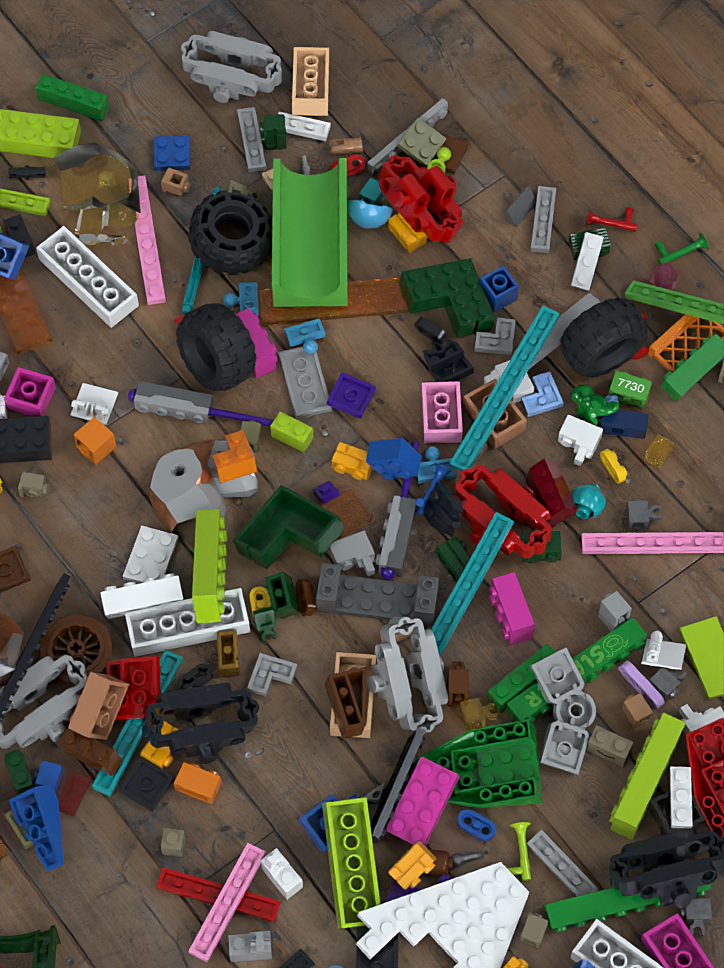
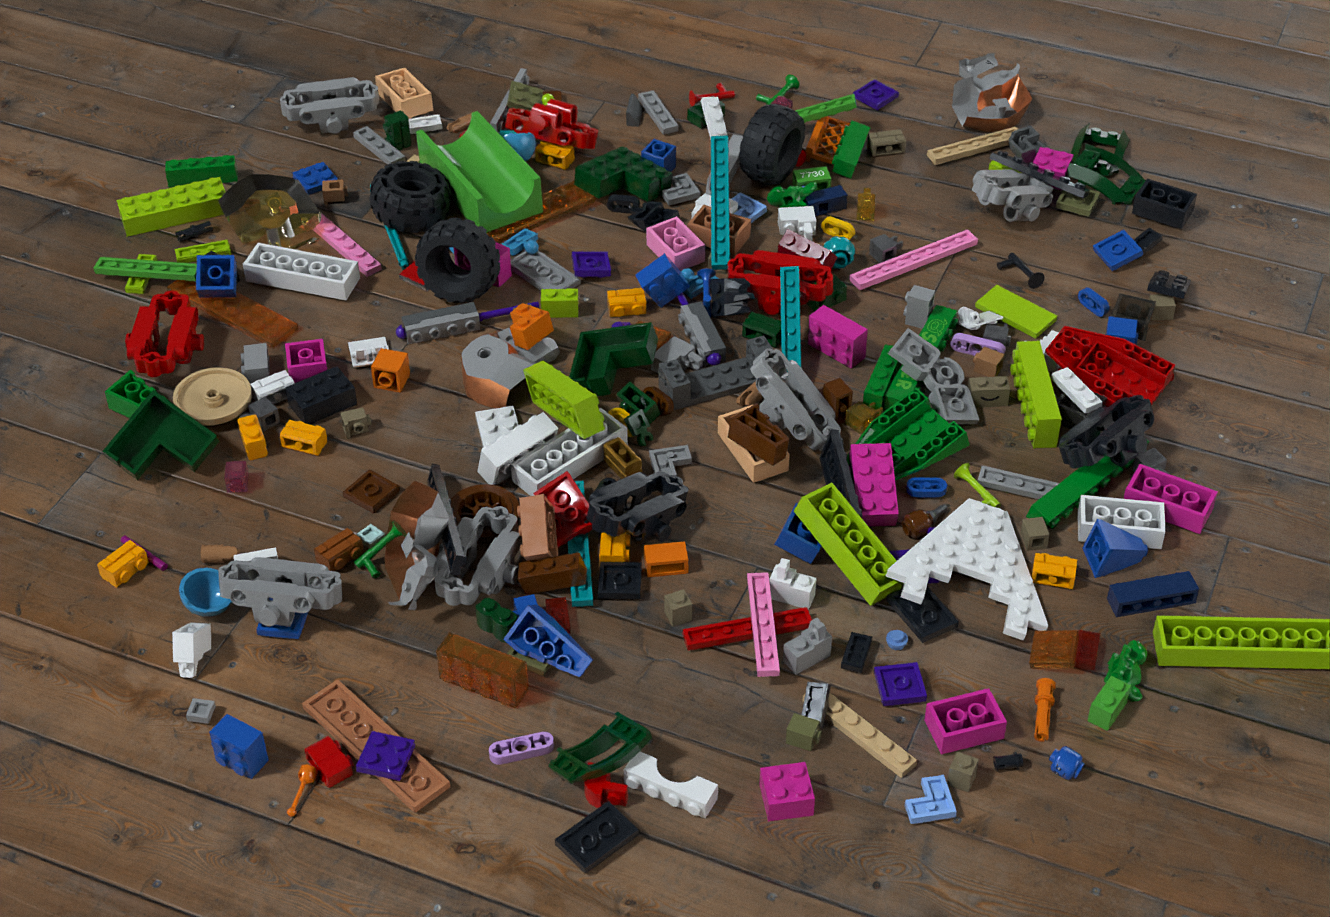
camera: 30 degrees left, 20 degrees down
(412, 865) = (902, 525): light orange brick -> none

